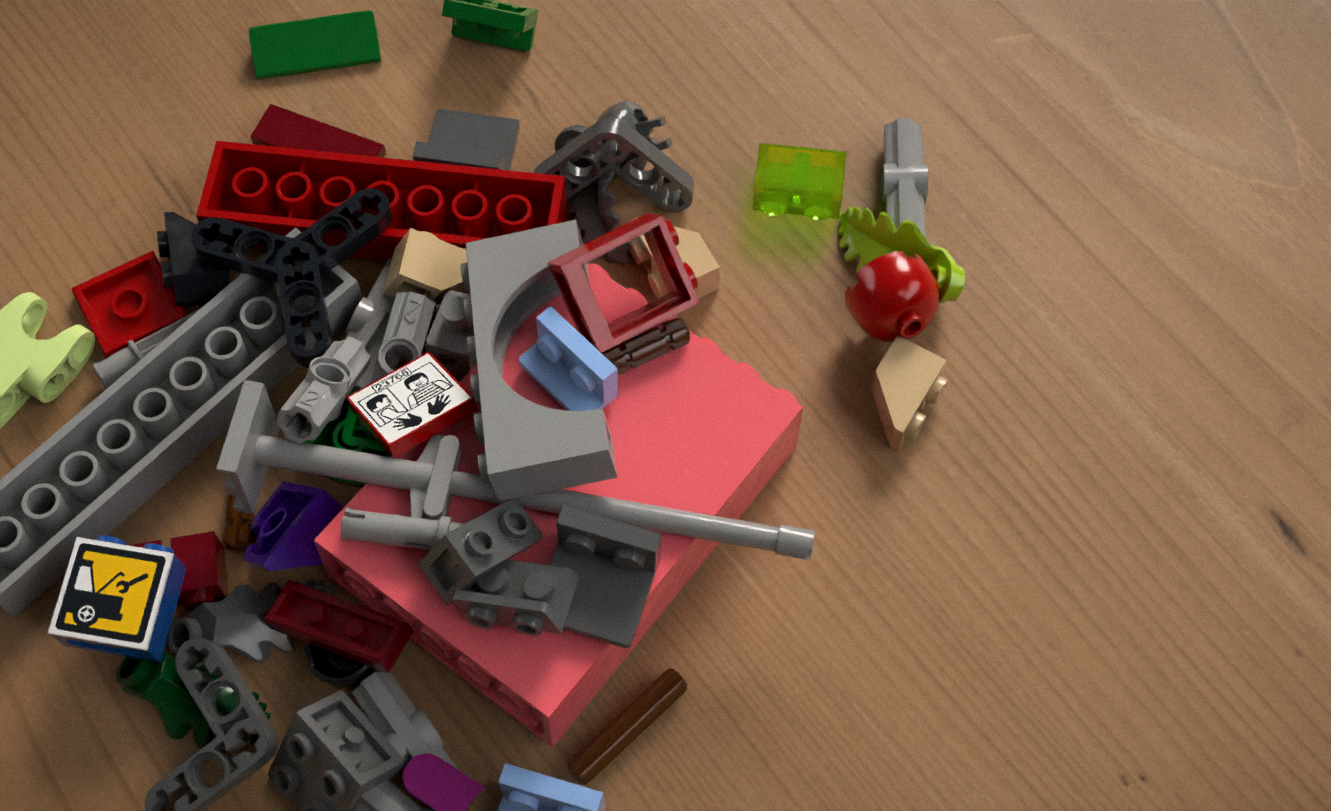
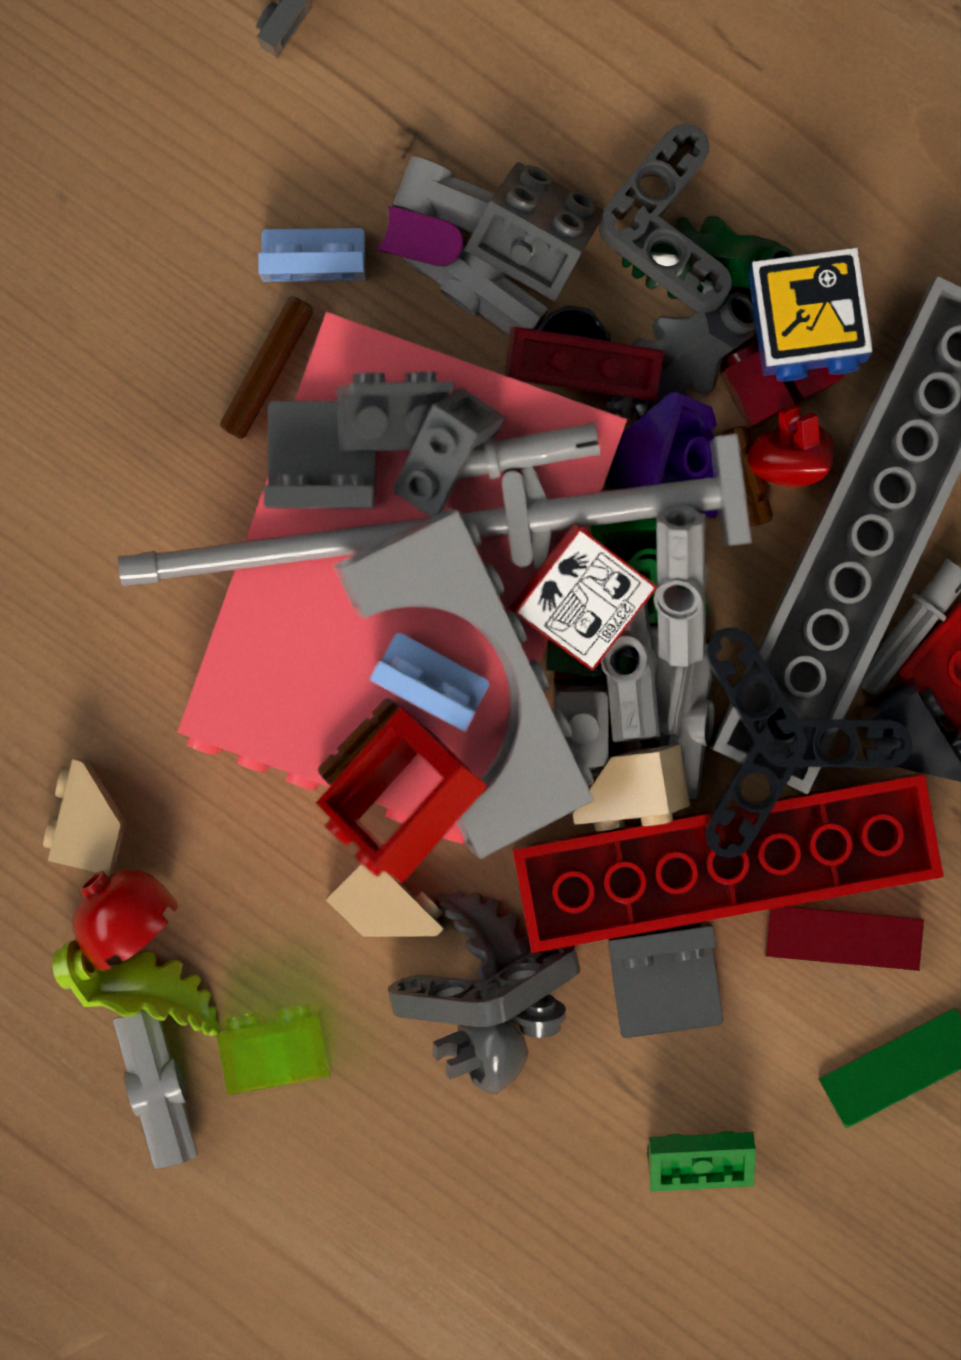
camera: 165 degrees right, 25 degrees up
(189, 501) = (794, 452): none -> red piece

